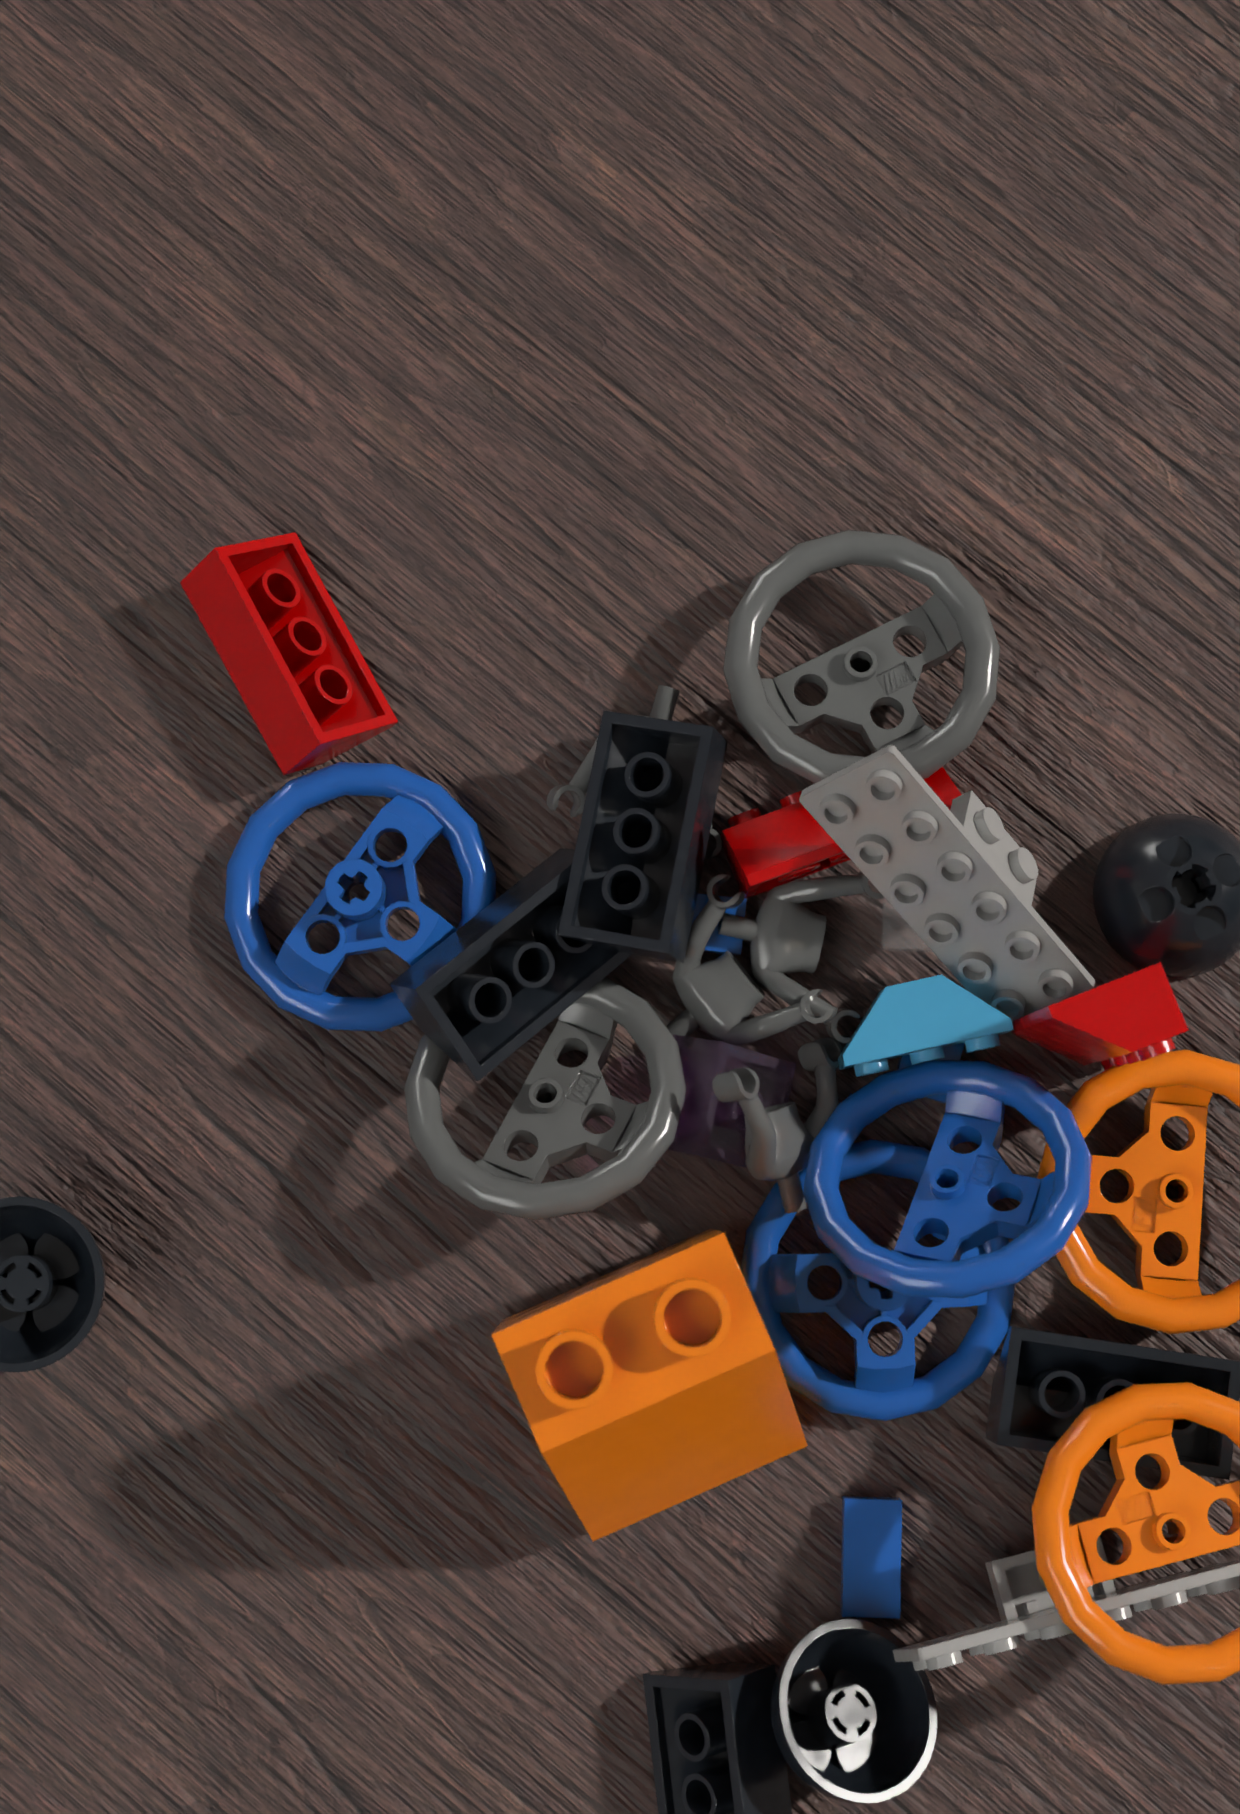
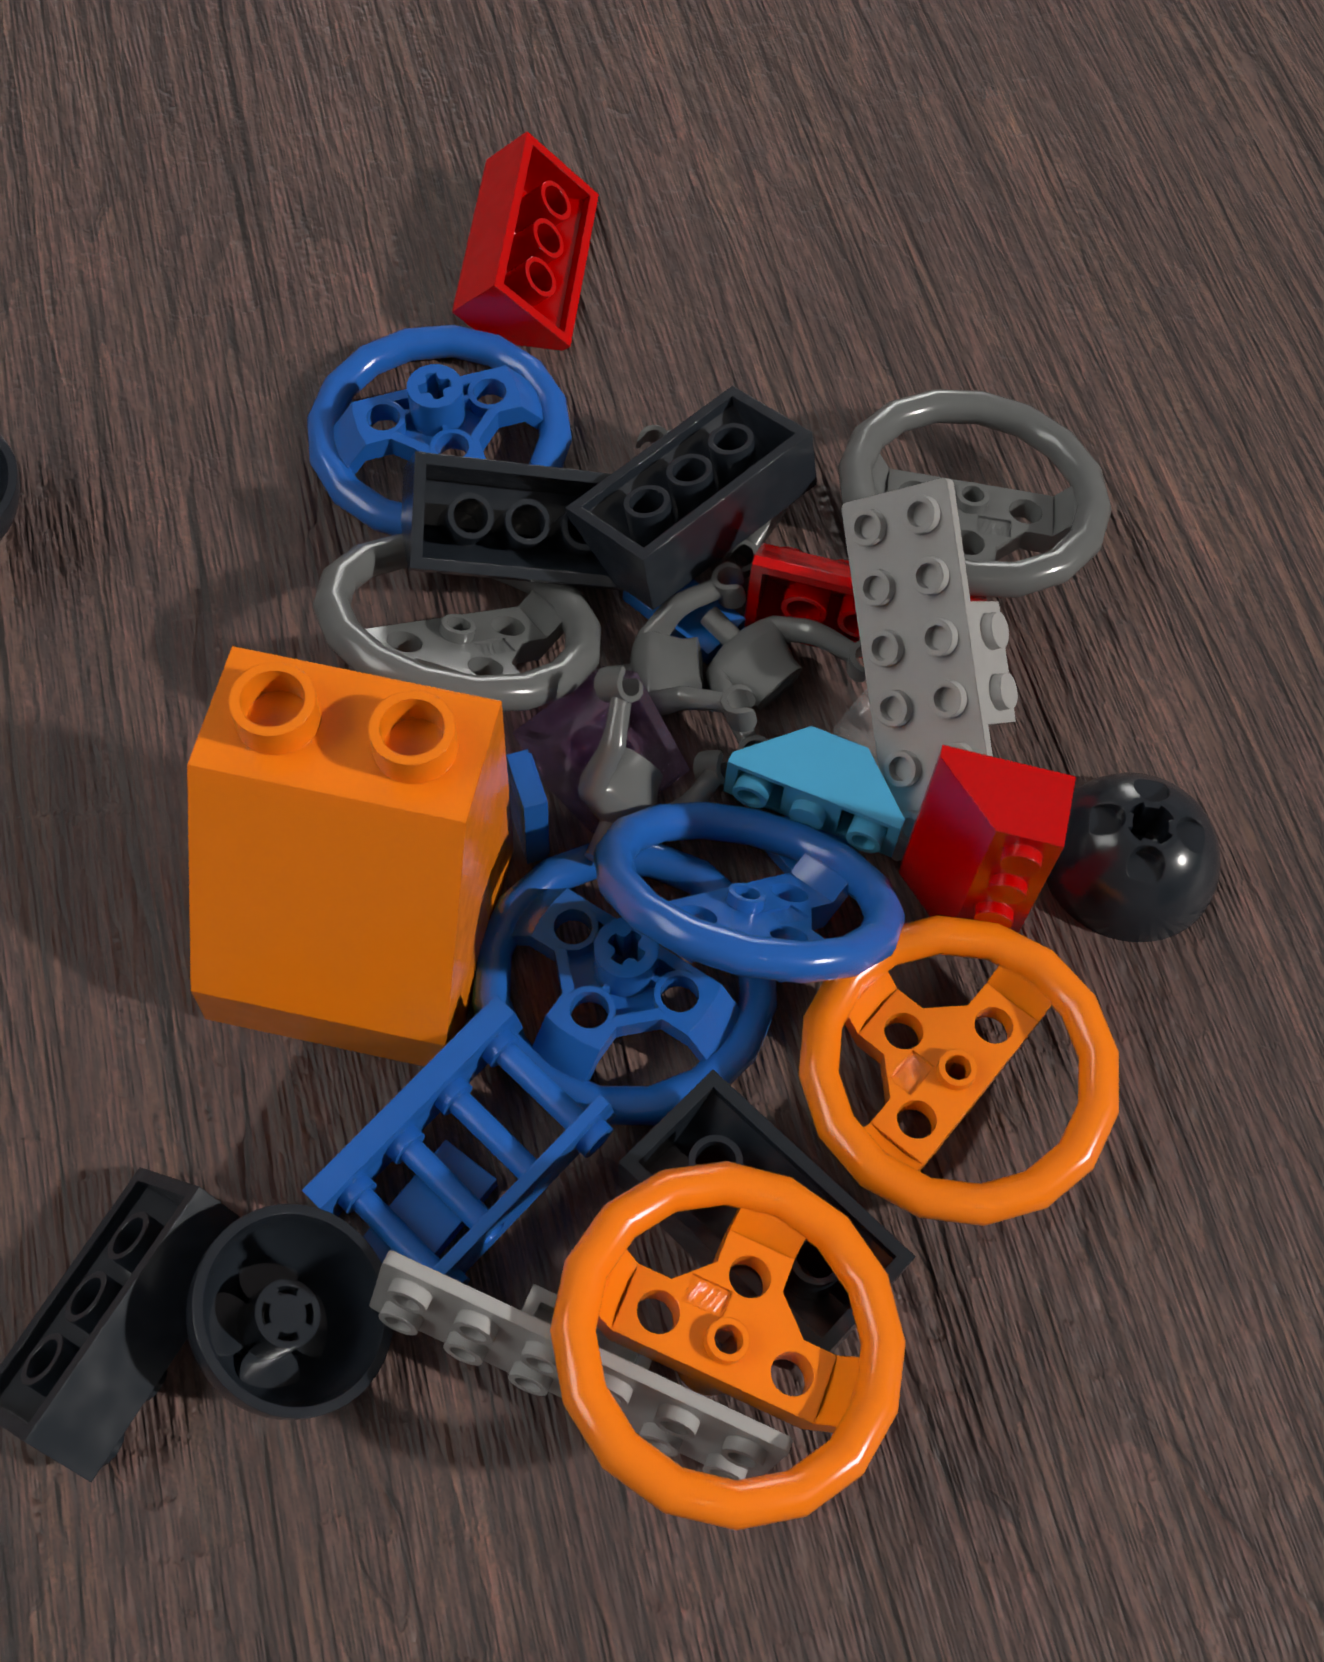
camera: 35 degrees right, 20 degrees down
(717, 1208) = (528, 805): none -> blue tile
(828, 1472) = (445, 1088): none -> blue fence

